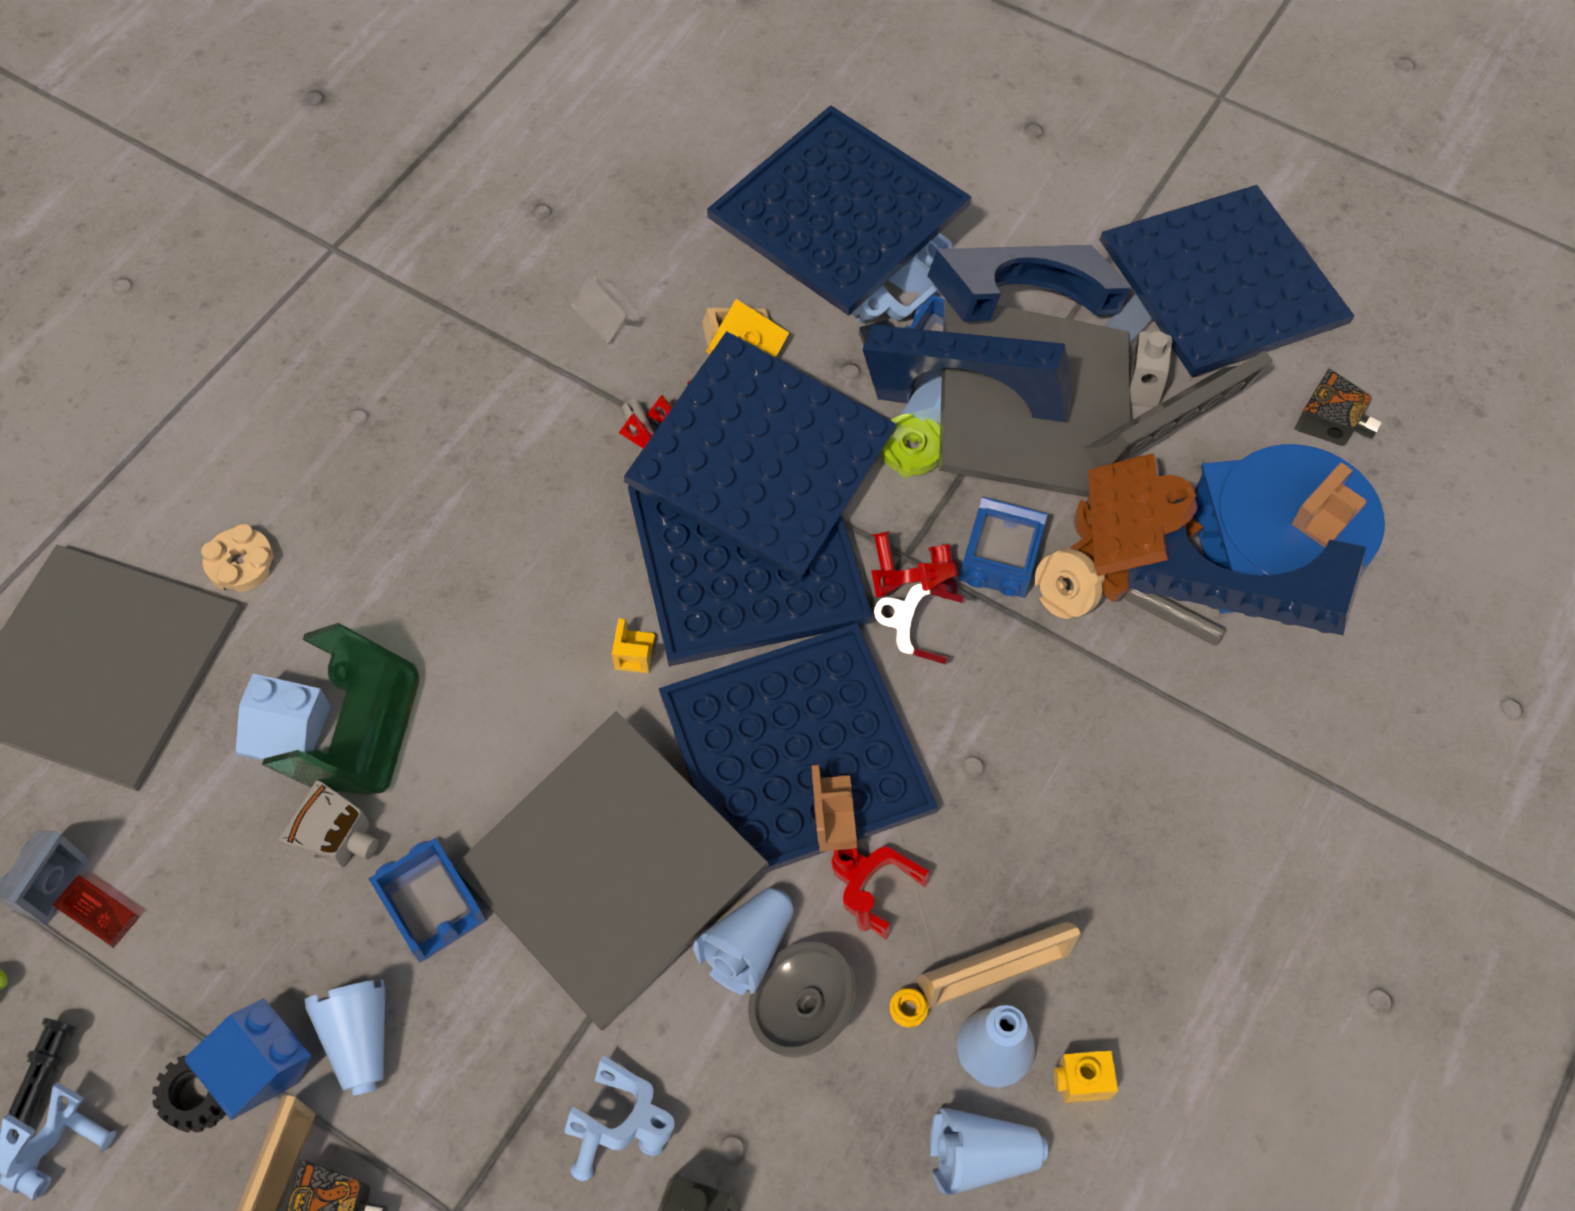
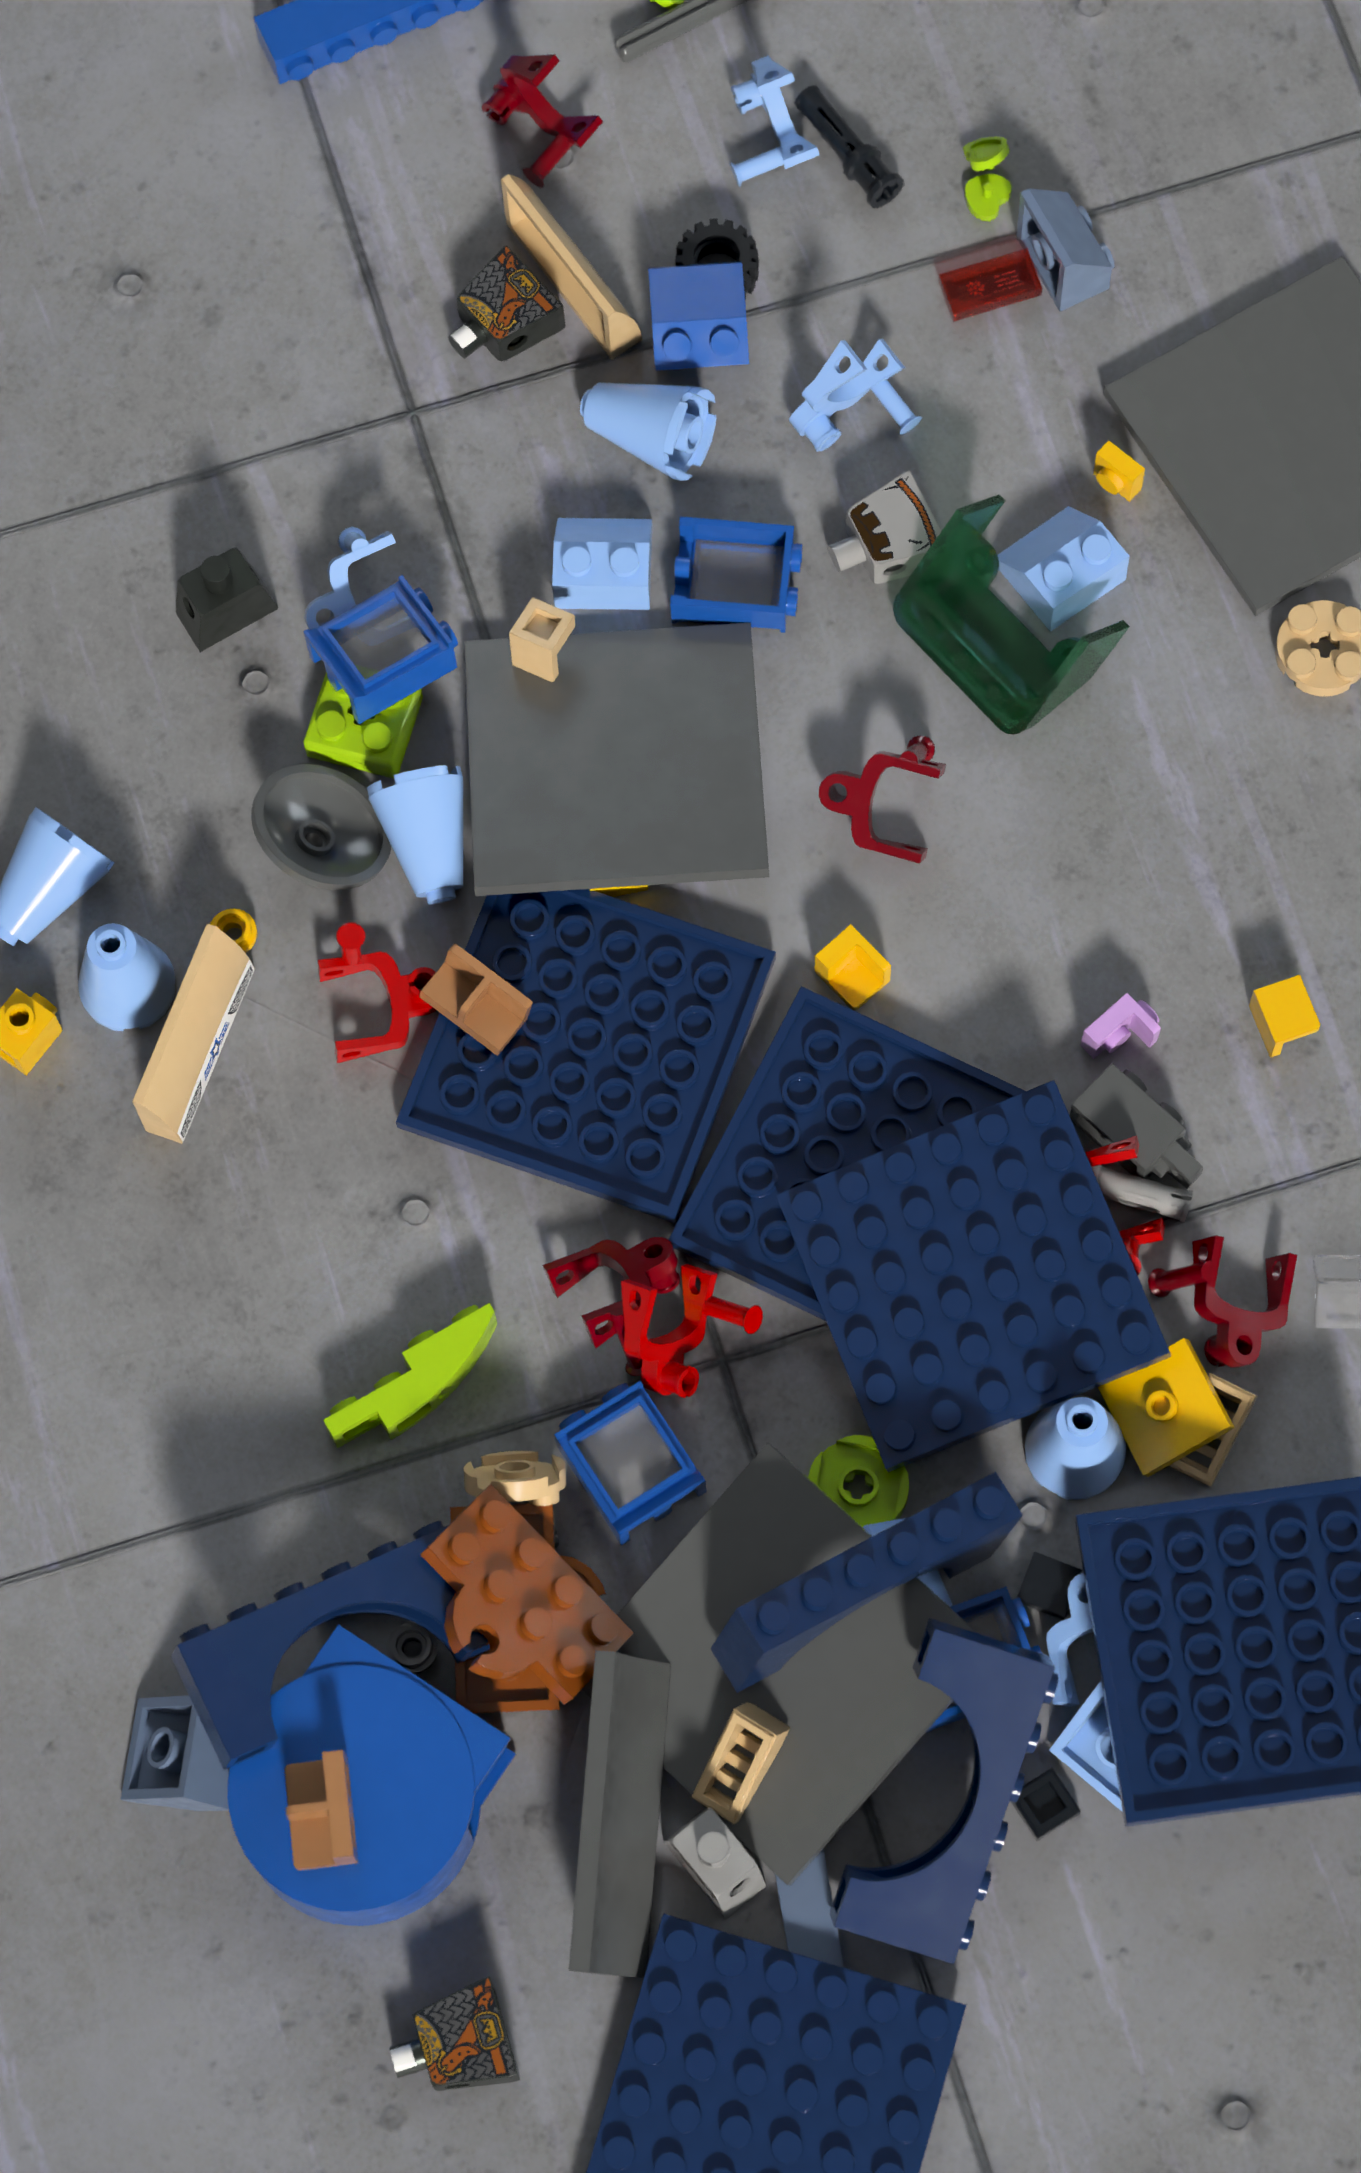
camera: 135 degrees right, 10 degrees up
(24, 965) = (986, 194): none -> lime piece
(192, 734) = (1118, 471): none -> yellow plate
(247, 925) = (839, 390): none -> light blue piece
(474, 988) = (602, 563): none -> light blue slope
(487, 429) = (1283, 1013): none -> yellow panel
(525, 715) = (862, 790): none -> dark red piece
(558, 499) = (1112, 1026): none -> lavender bracket
(565, 964) = (539, 637): none -> tan panel
(608, 455) = (1120, 1109): none -> dark grey hinge
(652, 1054) = (384, 648): none -> blue window
(682, 340) = (1237, 1329): none -> dark red piece
(729, 1053) = (370, 747): none -> lime brick
(805, 350) = (1075, 1448): none -> light blue cone
(1050, 674) = (435, 1368): none -> lime slope
(1083, 387) = (764, 1726): none -> tan slope
(1368, 640) = (173, 1758): none -> sand blue slope

